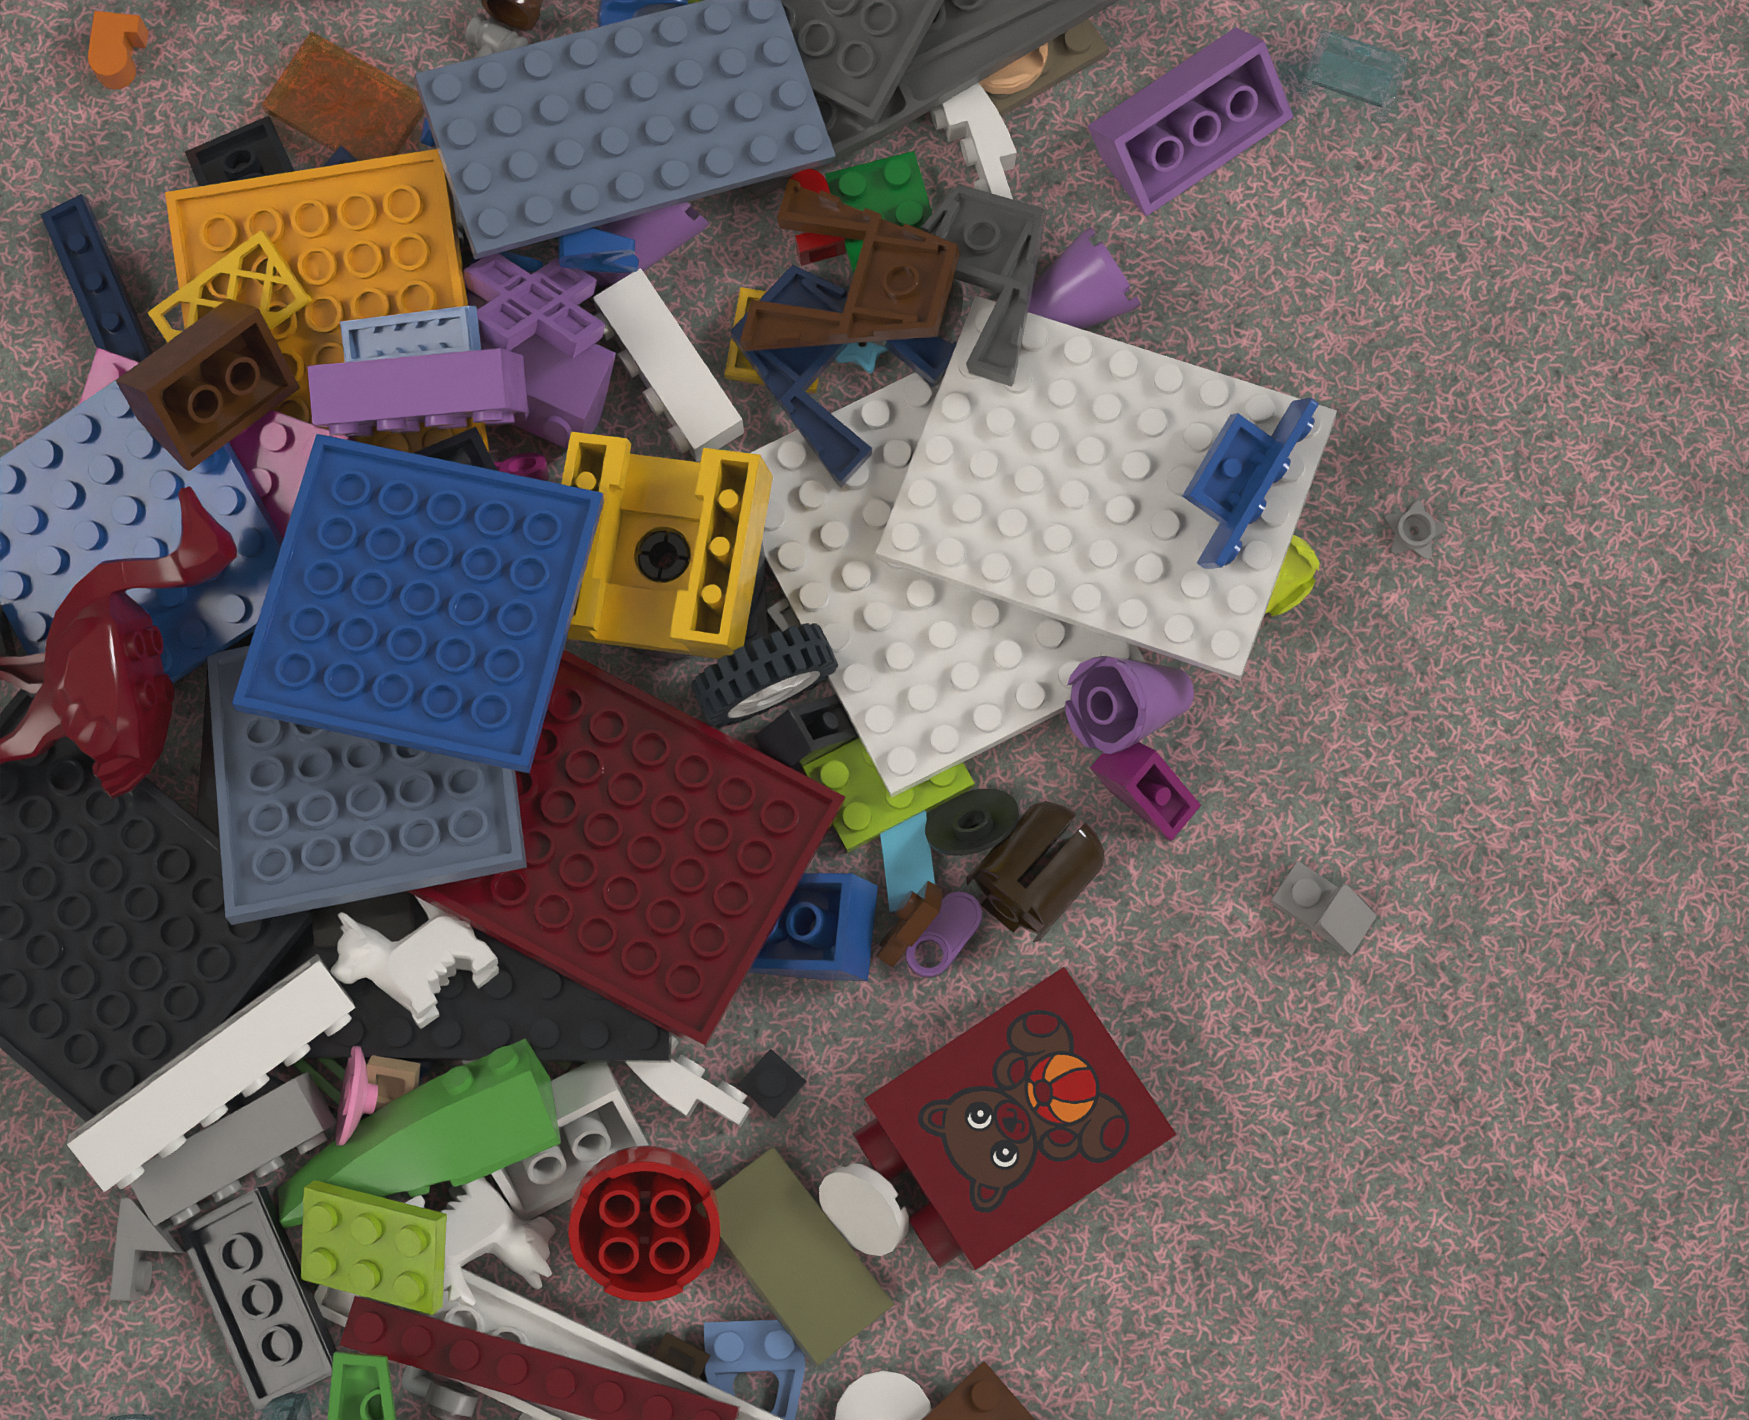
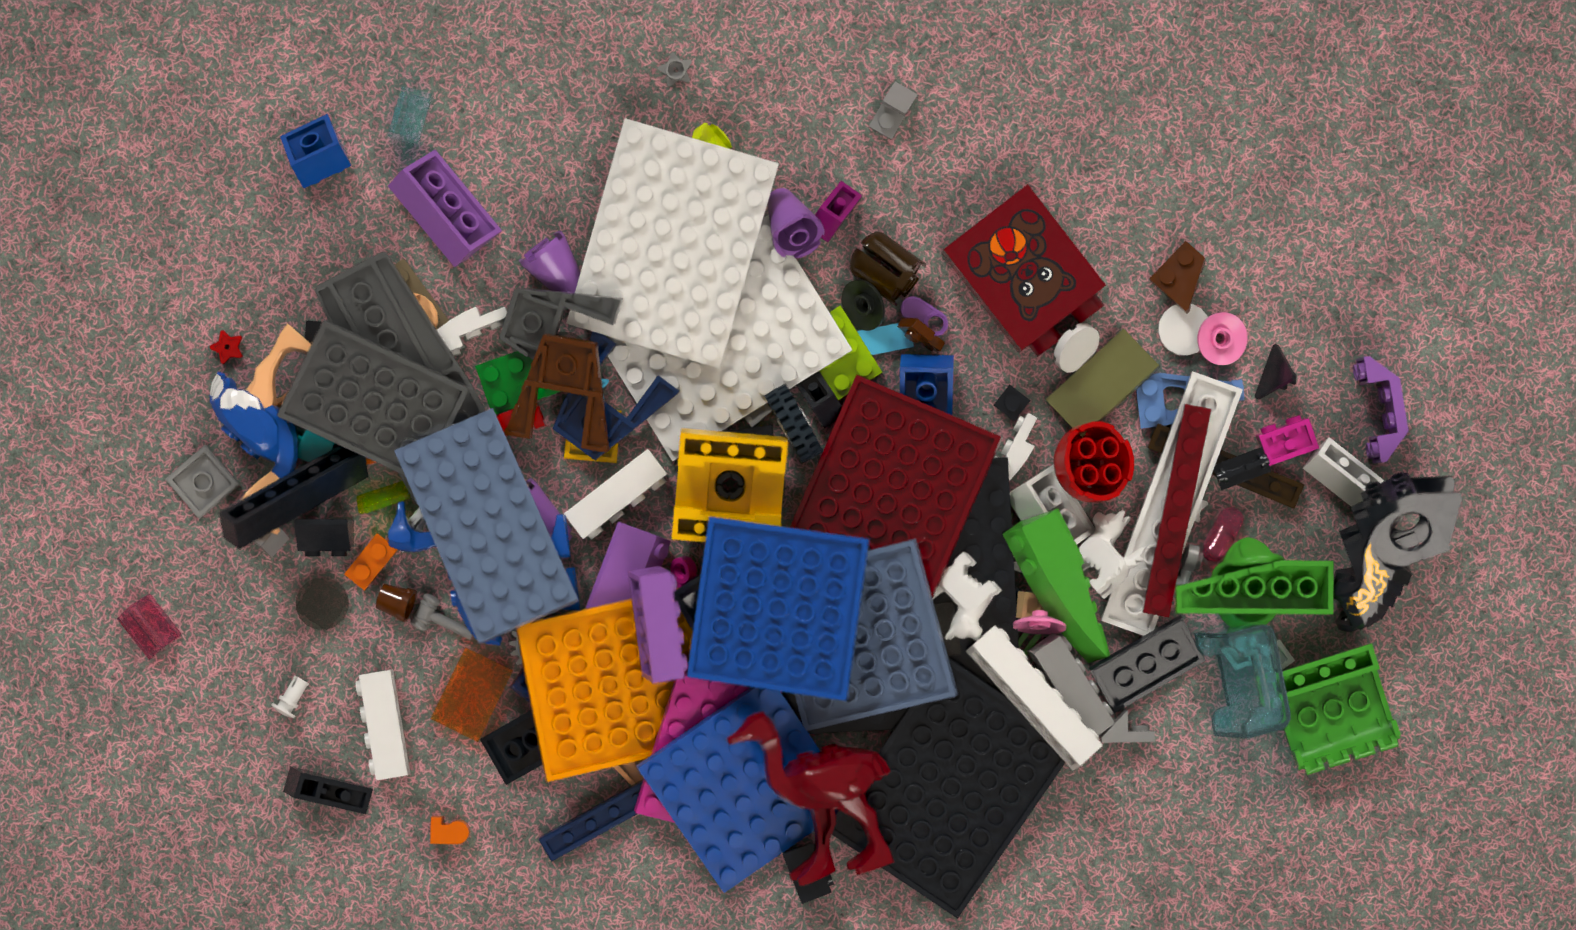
camera: 90 degrees left, 10 degrees up
(209, 382) = (660, 740): reddish brown slope -> none
(231, 265) = (632, 738): yellow window -> none
(373, 1247) = (1118, 603): lime plate -> none
(411, 334) = (625, 632): medium blue plate -> none
(533, 304) = (597, 568): medium lavender plate -> none
(1240, 473) = (669, 169): blue bracket -> none

